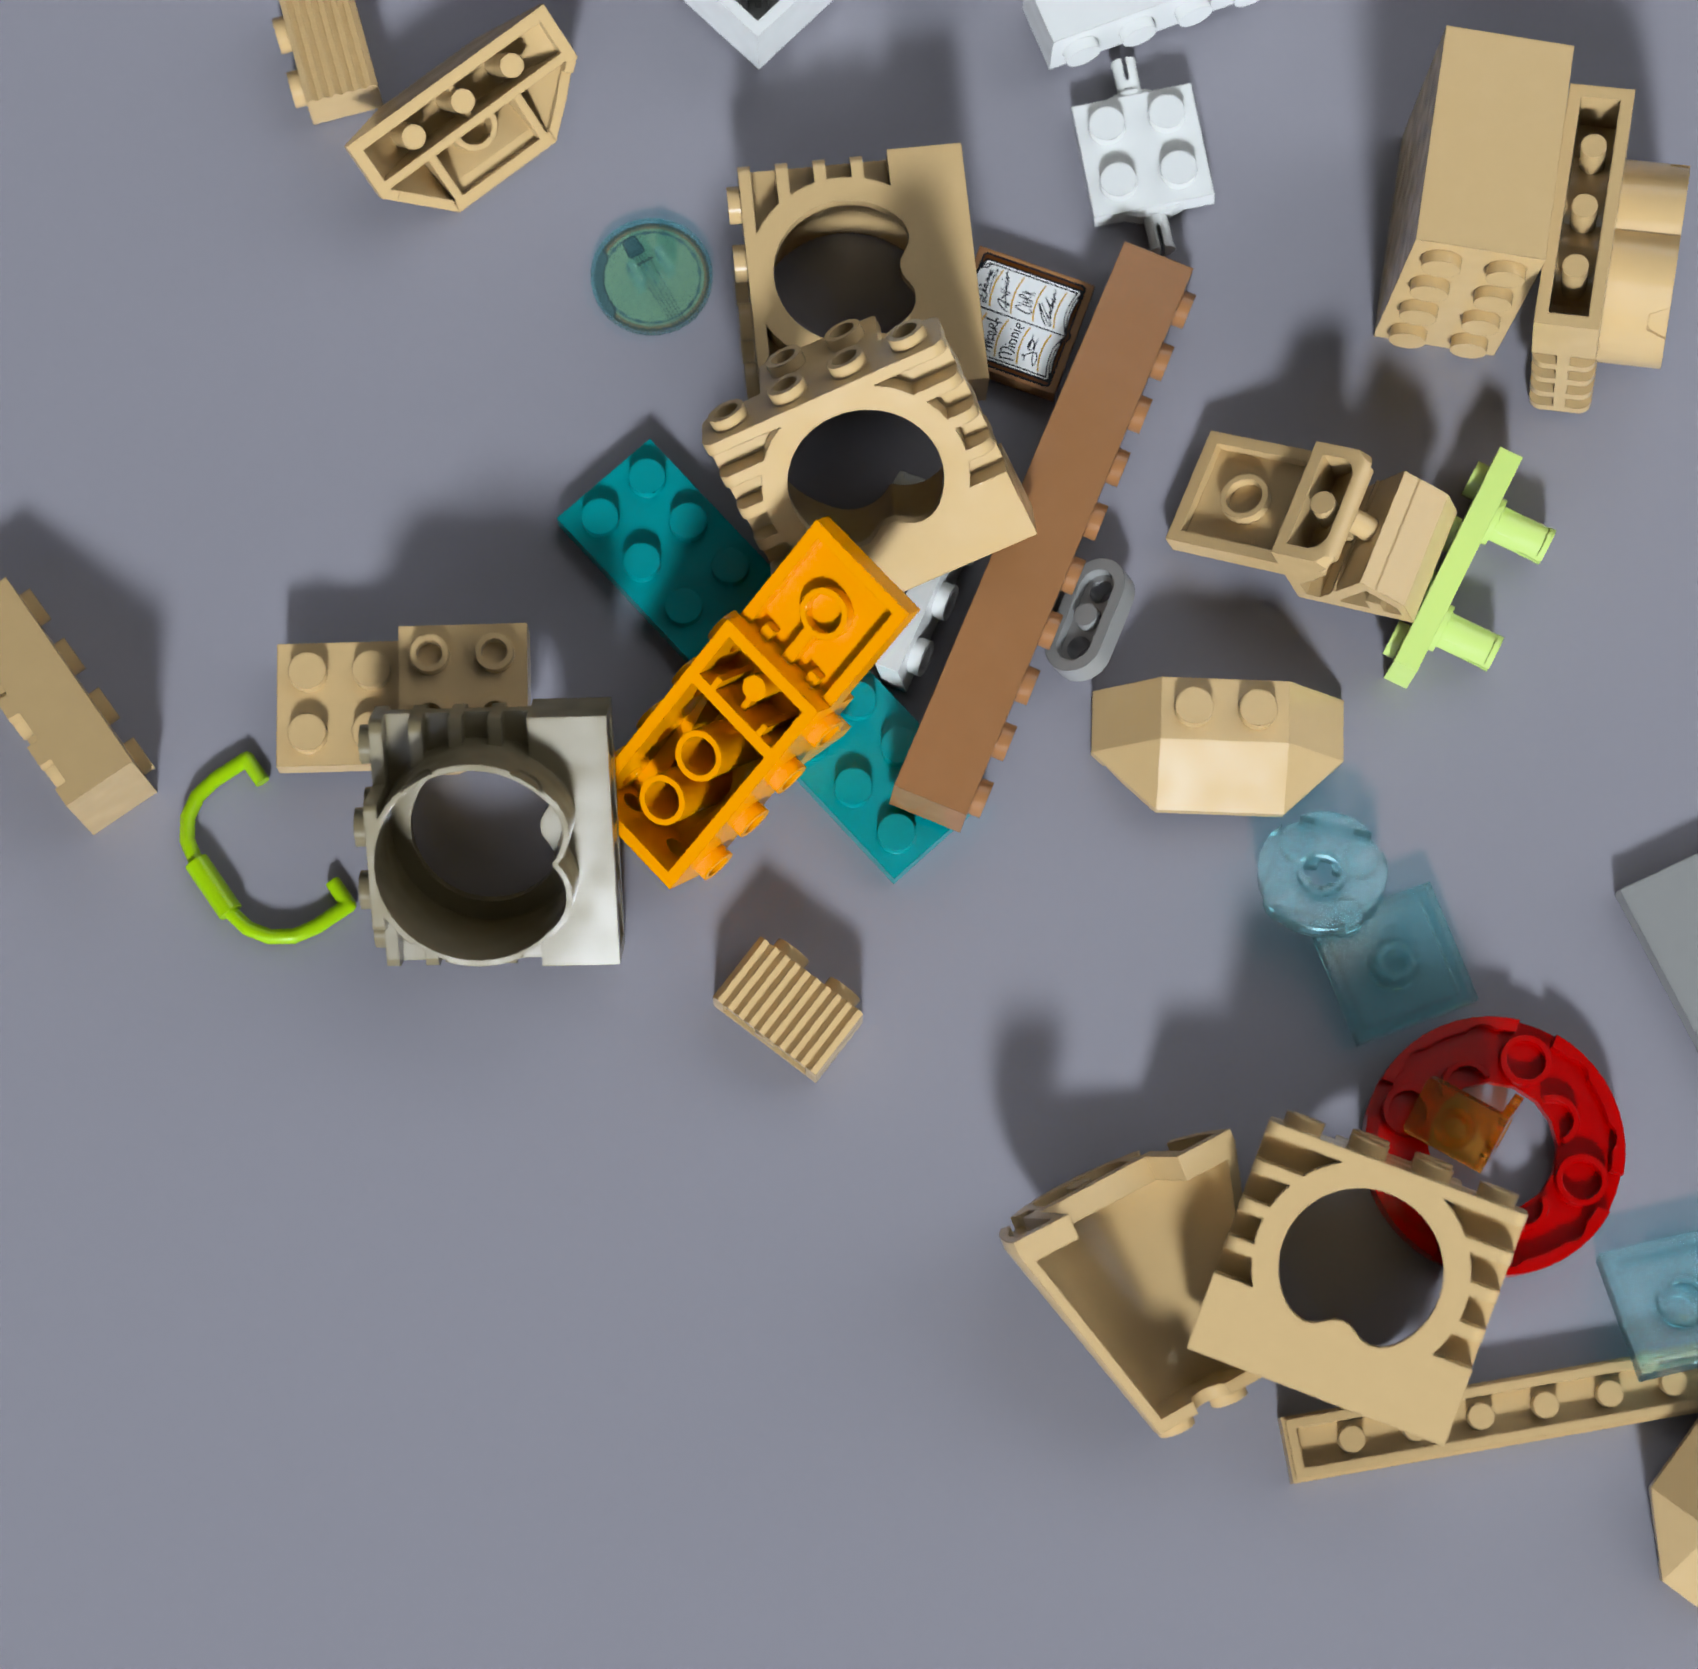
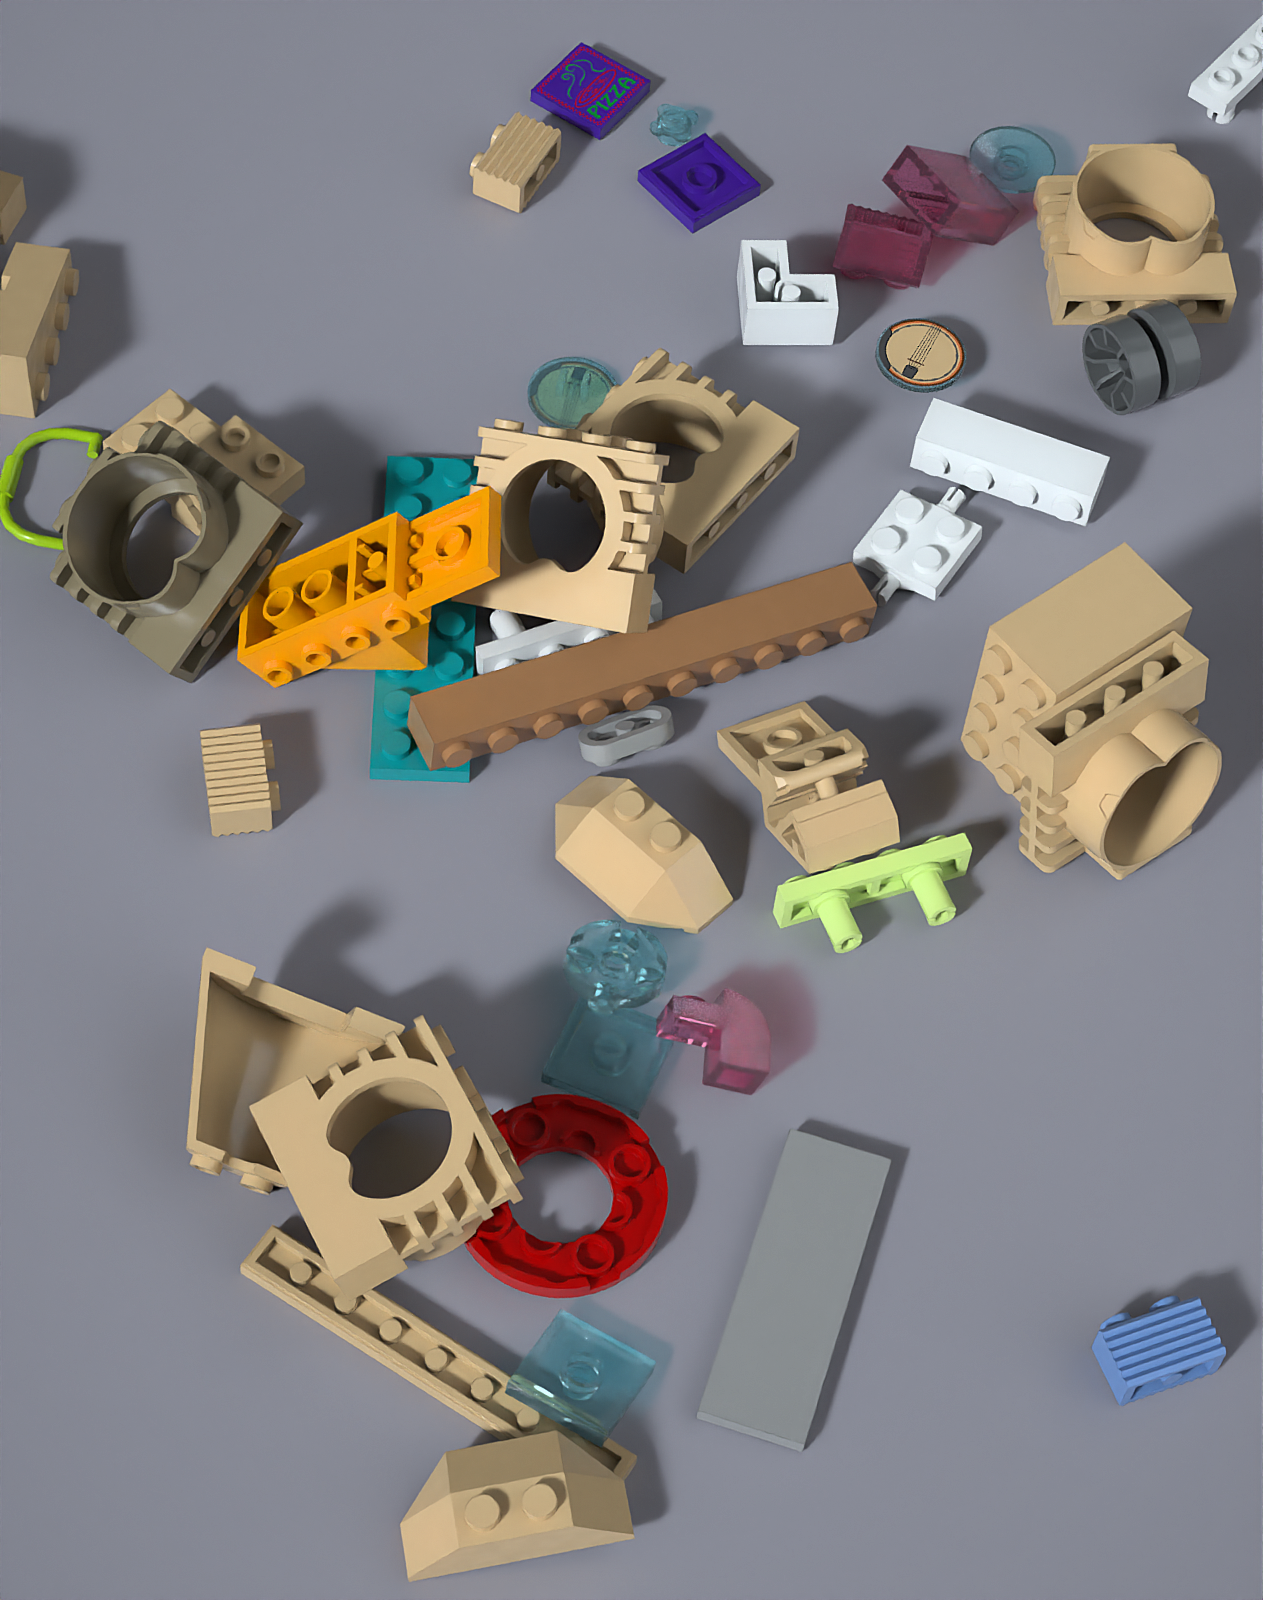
camera: 40 degrees right, 20 degrees down
(470, 117) = (551, 241): tan wedge -> none
(1028, 321) = (750, 559): tile -> none
(1459, 1123) = (551, 1159): clear orange bracket -> none
(1497, 852) = (729, 1030): none -> clear pink brick

